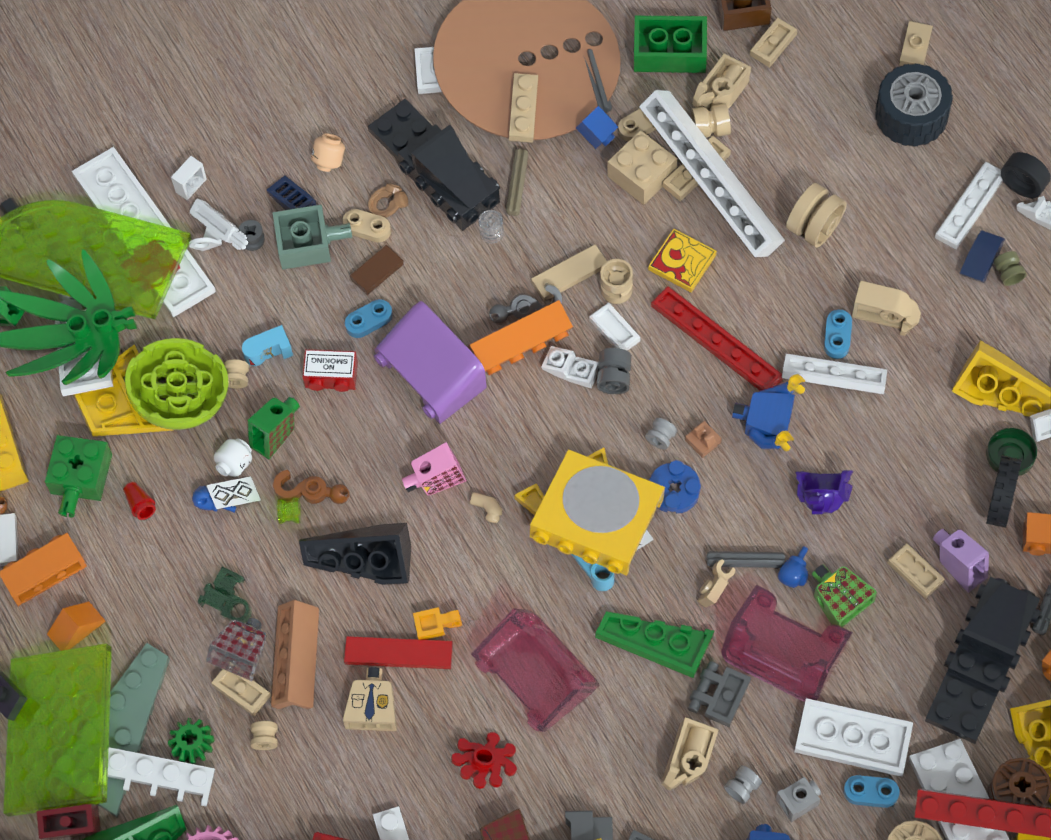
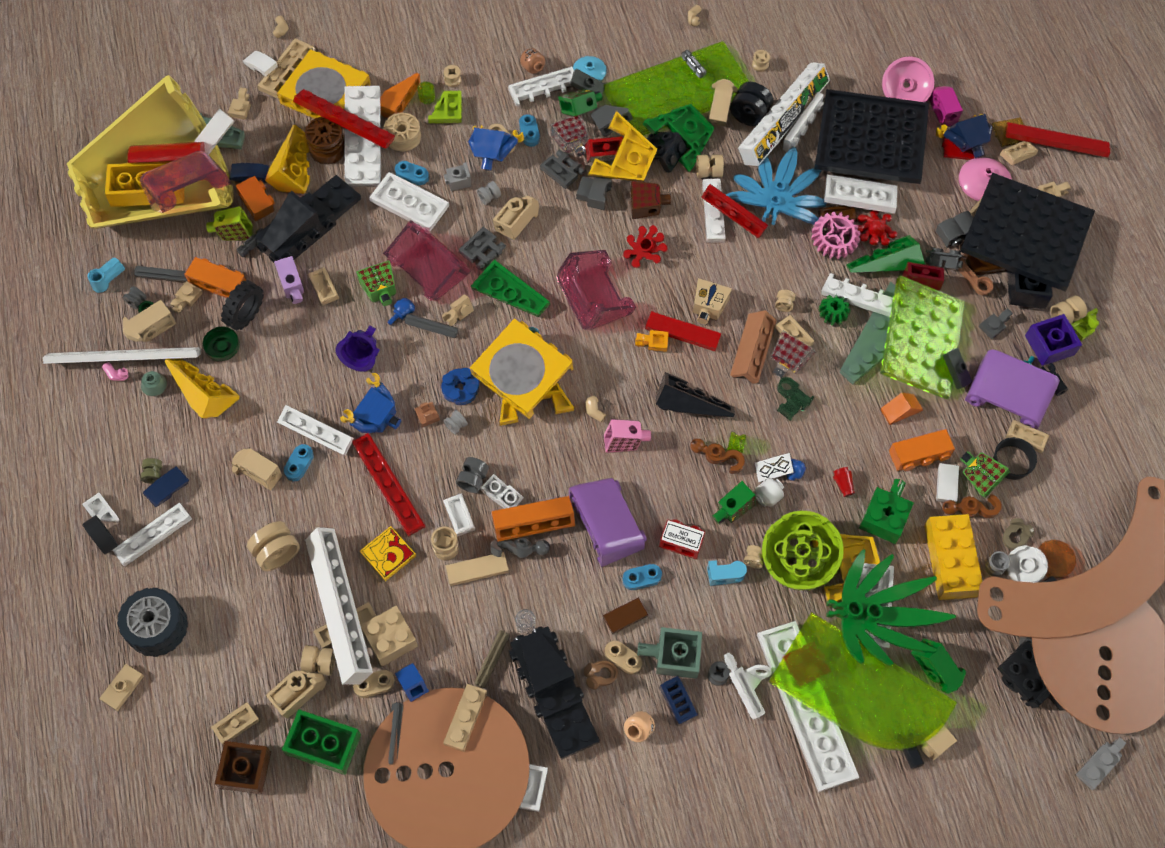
camera: 170 degrees left, 0 degrees up
(188, 178) = (760, 739): white piece -> none

